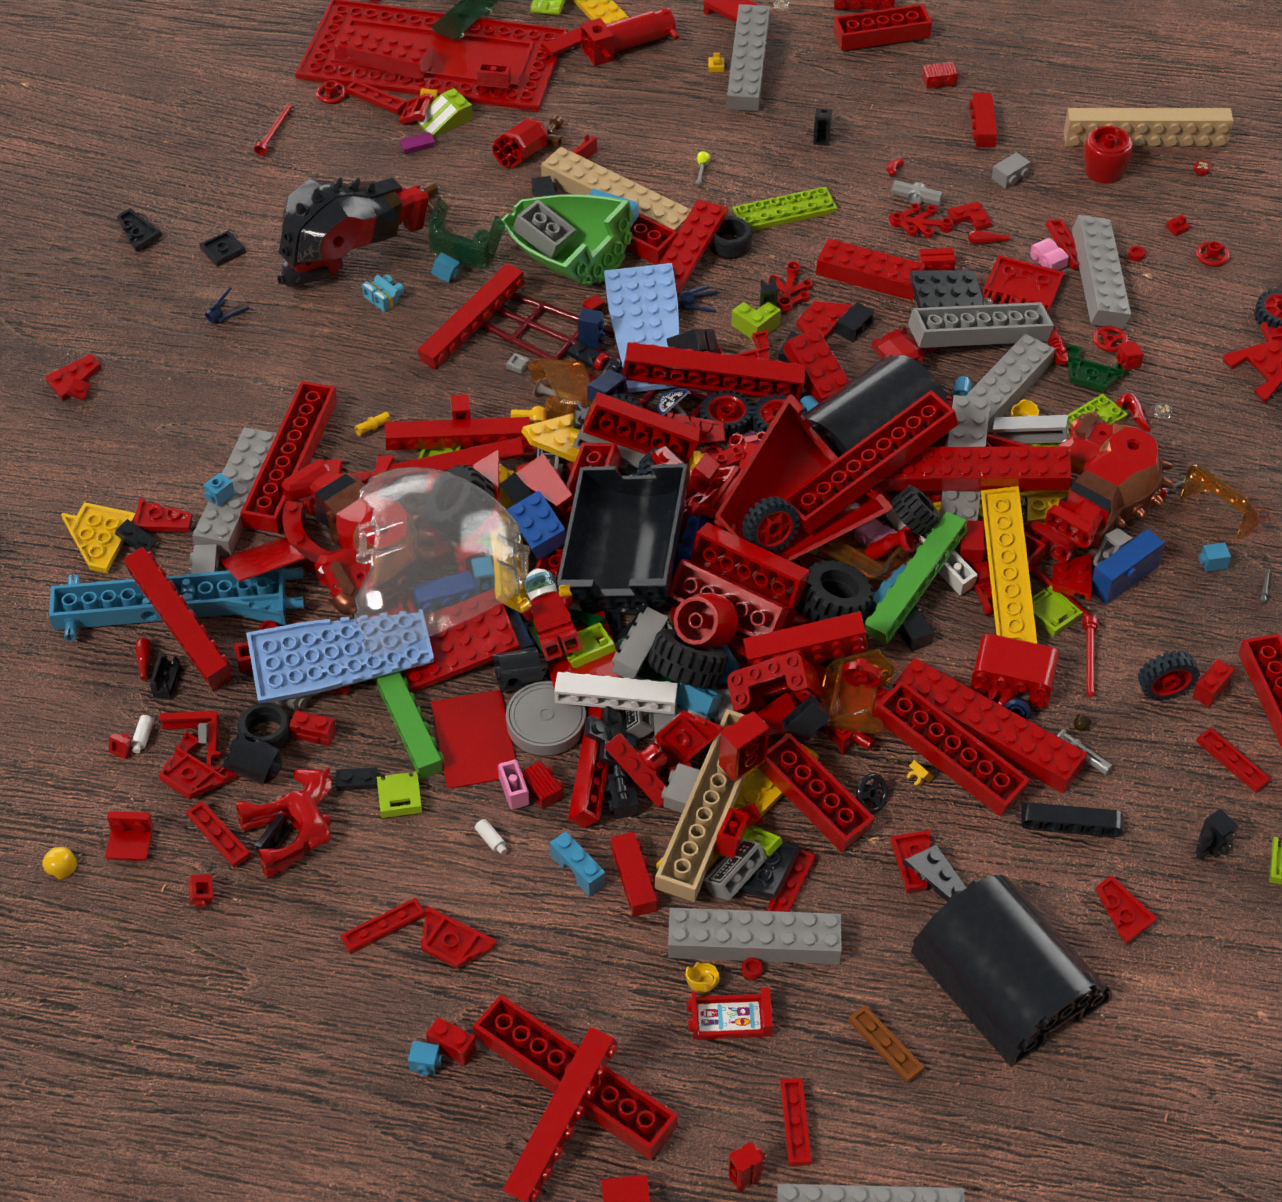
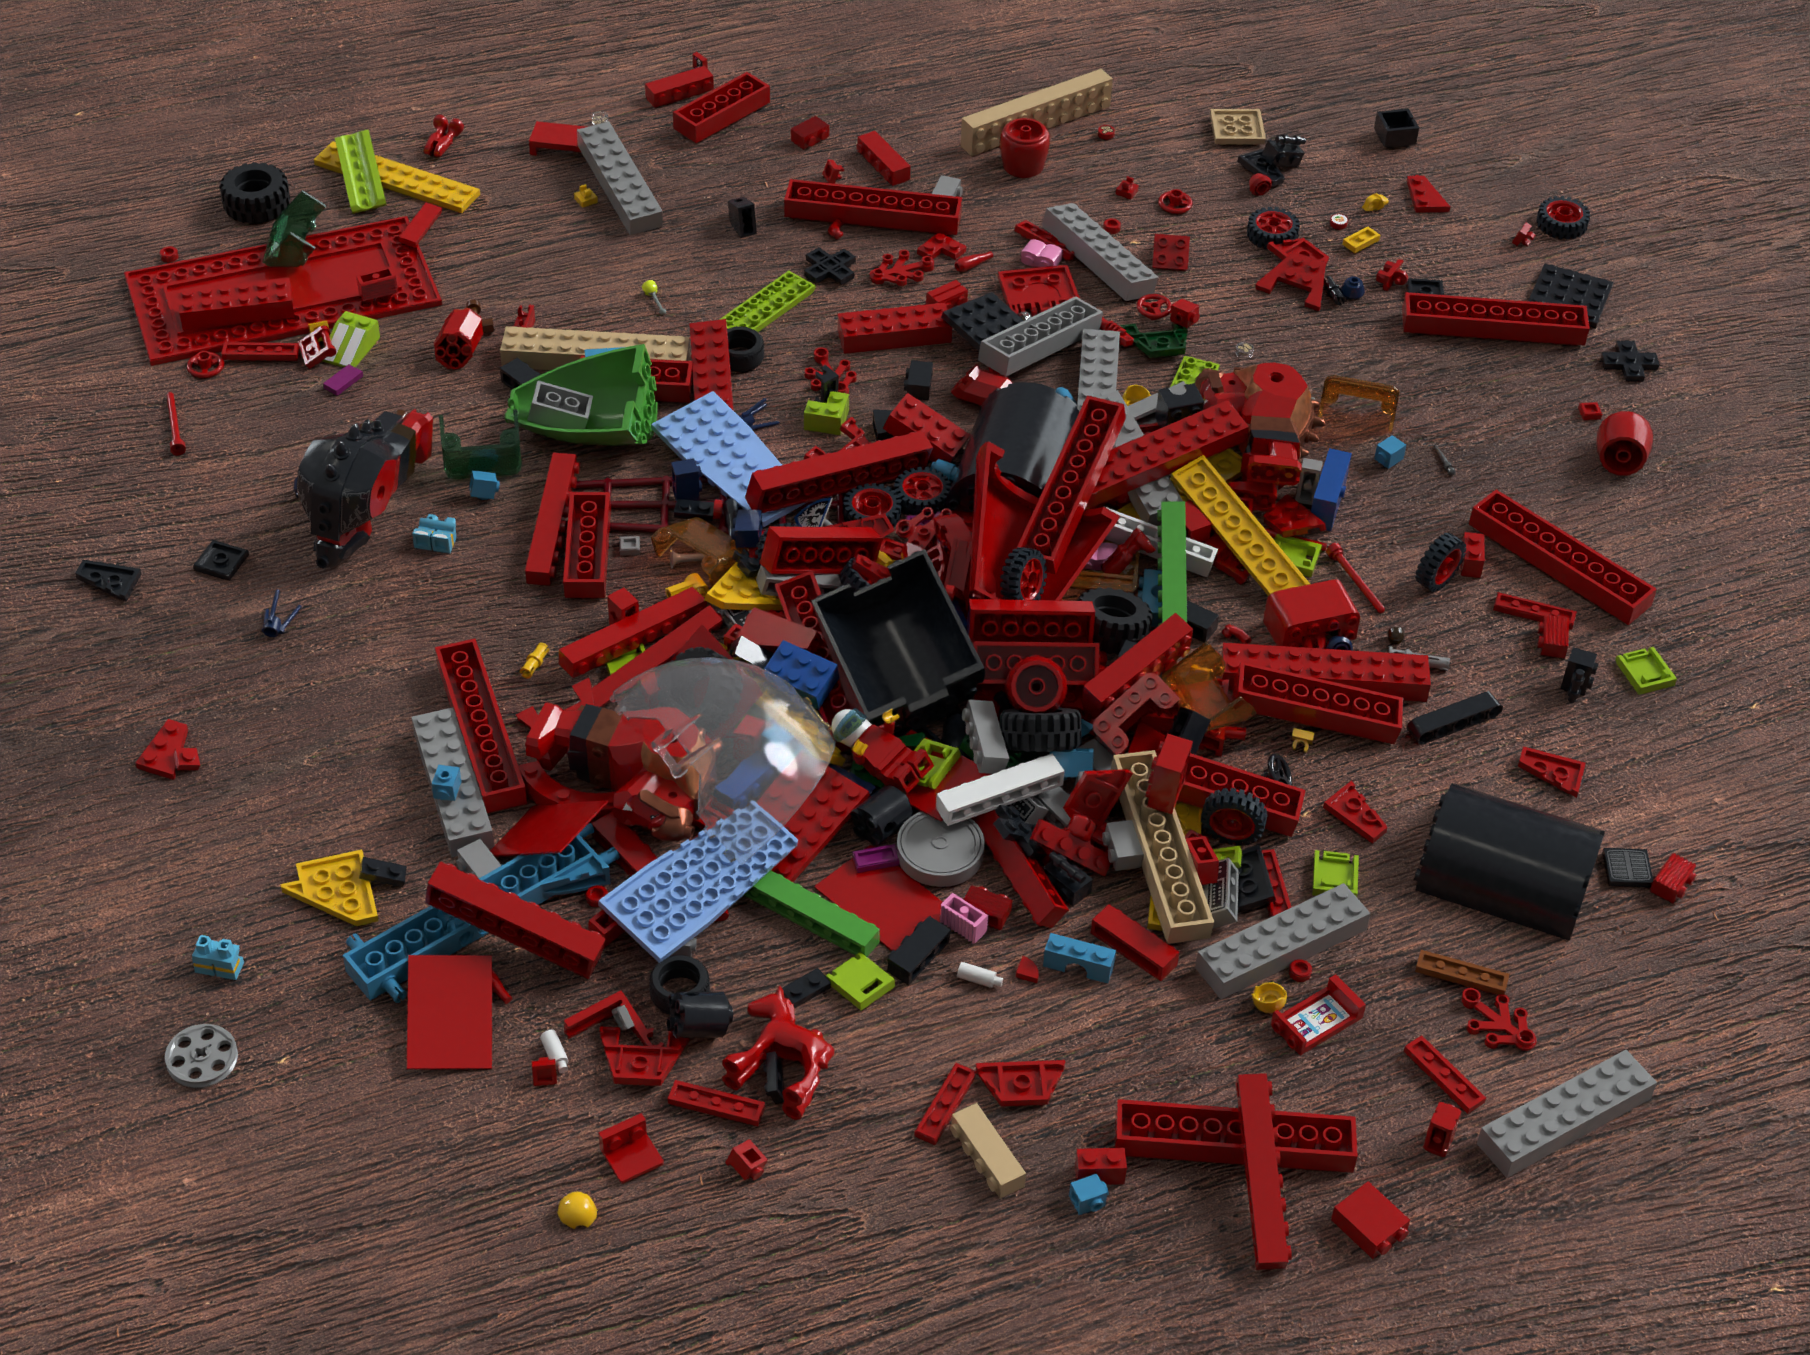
camera: 35 degrees left, 5 degrees down
(92, 666) = (449, 1012): none -> red piece
(160, 519) = (393, 844): red wing -> none
(165, 677) = (533, 988): black hinge -> none
(312, 728) = (727, 961): red brick -> none
(315, 598) = (632, 851): none -> red brick
(379, 980) = (988, 1151): none -> tan brick
(460, 792) = (918, 950): none -> black brick
(479, 348) = (587, 545): none -> red brick
(490, 701) = (875, 858): none -> magenta tile
(532, 852) = (1027, 970): none -> red tile
(594, 303) = (662, 463): red plate -> none
(602, 40) = (458, 212): red piece -> none
(695, 339) = (802, 449): black piece -> none
(793, 810) = (1234, 816): none -> black wheel
(821, 316) = (884, 389): red wing -> none
(853, 901) = (1333, 871): none -> lime container
(861, 673) = (1204, 670): red plate -> none
(862, 195) = (830, 266): none -> black plate
(883, 1104) = (1502, 1022): none -> red plant
(915, 510) = (1138, 511): black tyre -> none
(917, 193) = (878, 245): light grey piece -> none
(931, 115) = (831, 171): none -> red tile
(936, 870) = (1391, 812): wing -> none
(938, 159) = (873, 207): none -> red brick
(939, 650) = (1239, 633): none -> red arm
(1037, 435) = (1176, 407): none -> black piece
(1118, 1030) = (1627, 867): none -> tile
(1131, 402) = (1213, 353): red piece -> none
(1150, 1062) = (1673, 878): none -> red brick
(1167, 296) = (1171, 252): none -> red bracket
(1228, 790) = (1553, 636): none -> red brick

